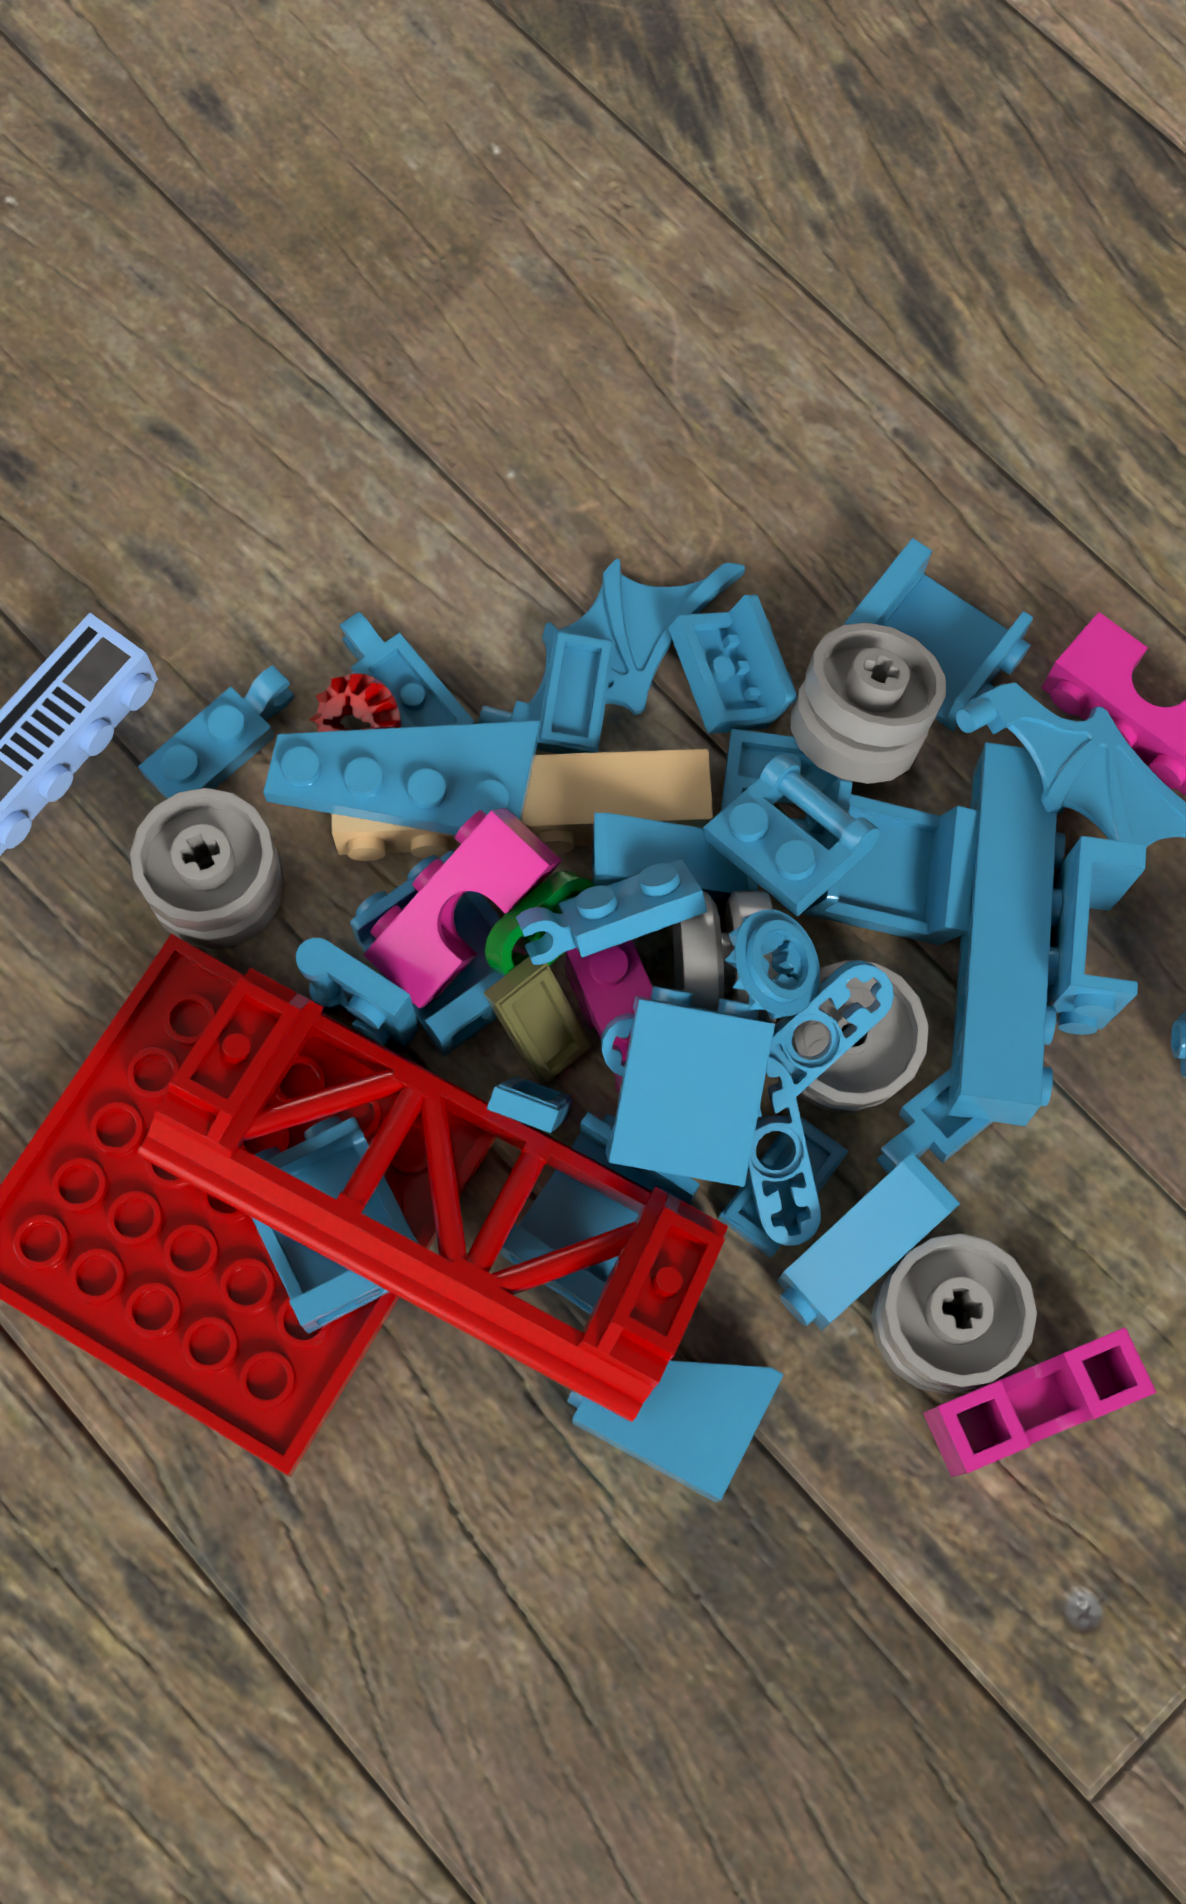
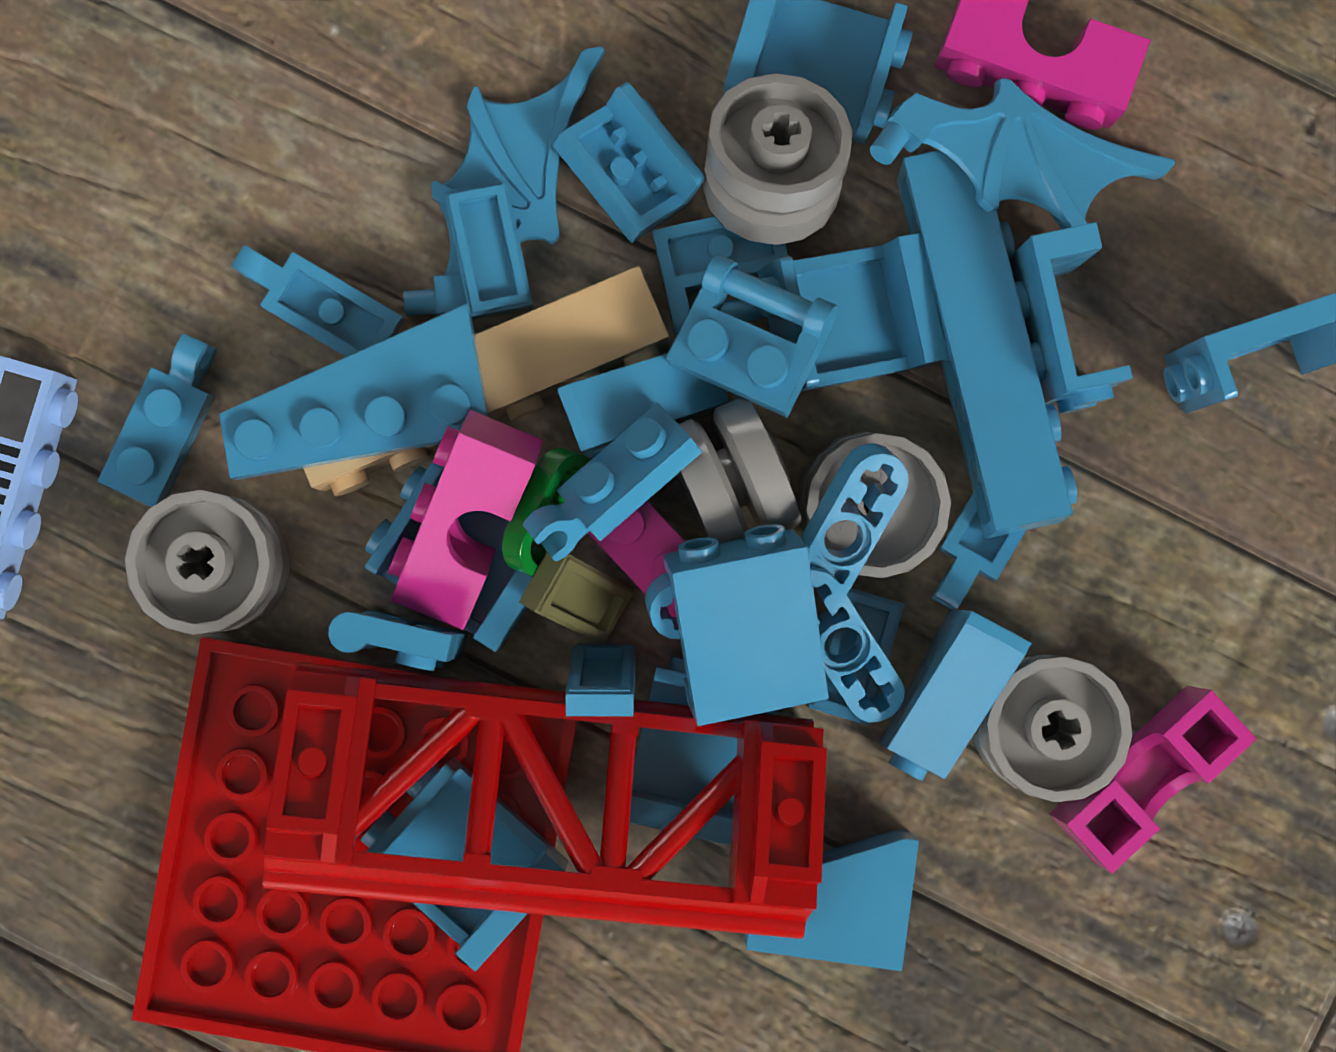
camera: 20 degrees left, 15 degrees up
(356, 695) = (284, 335): red gear -> none
(793, 961) = (801, 471): dark azure gear -> none

